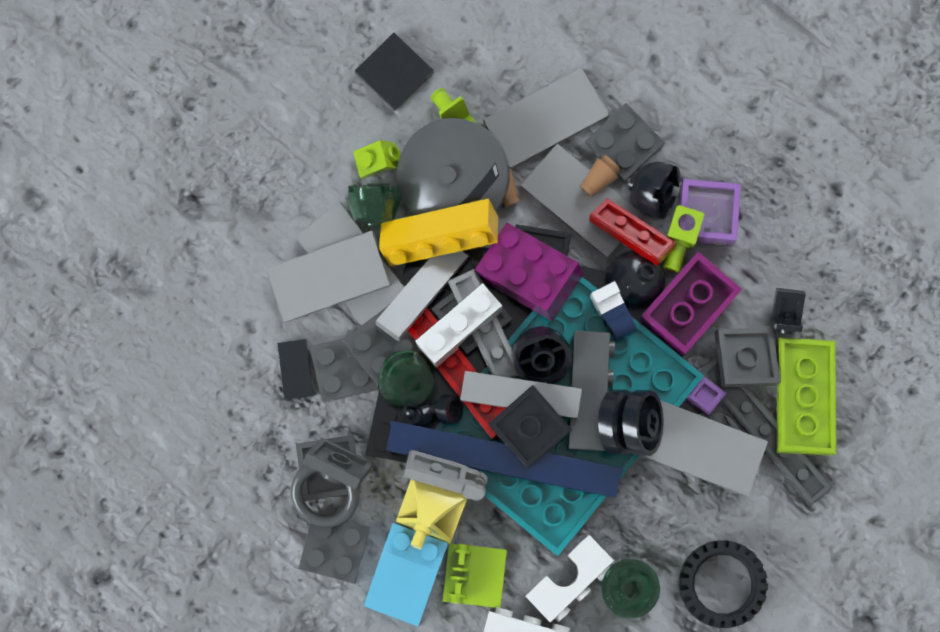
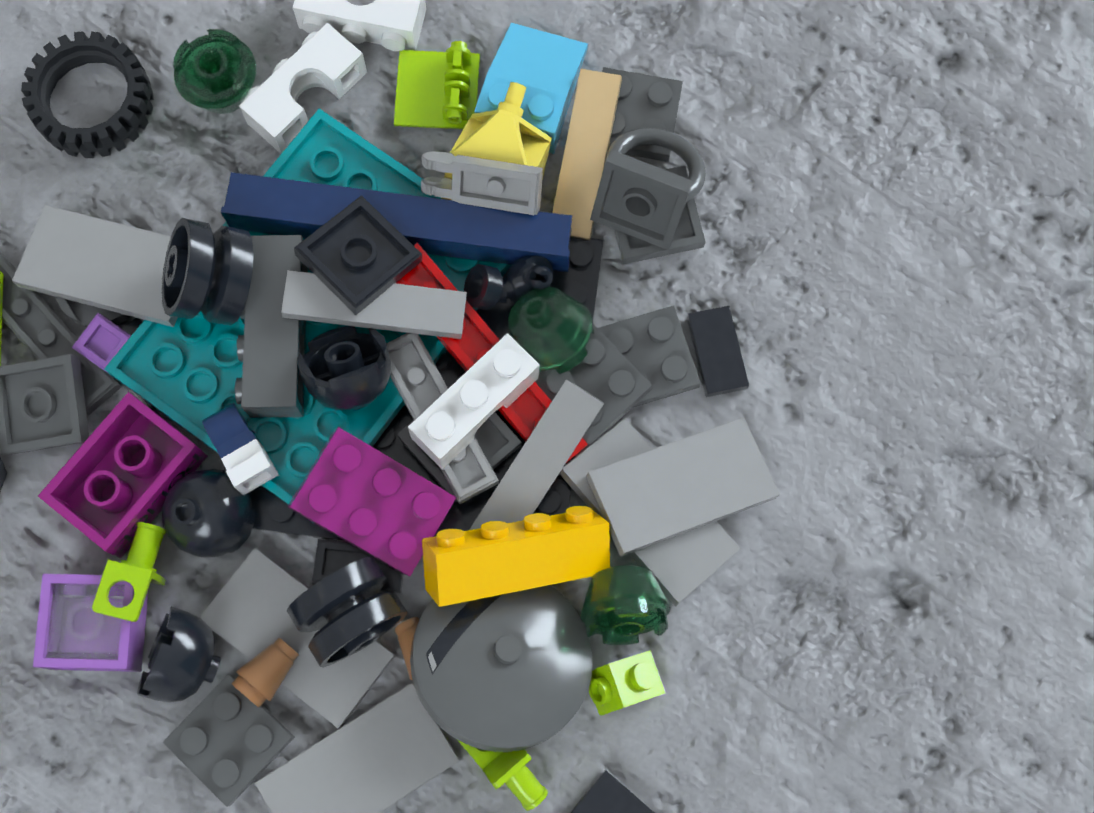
camera: 170 degrees right, 5 degrees down
(372, 513) = (586, 148): none -> tan tile
(546, 203) = (346, 611): none -> black wheel
(632, 231) = (211, 580): red tile -> none

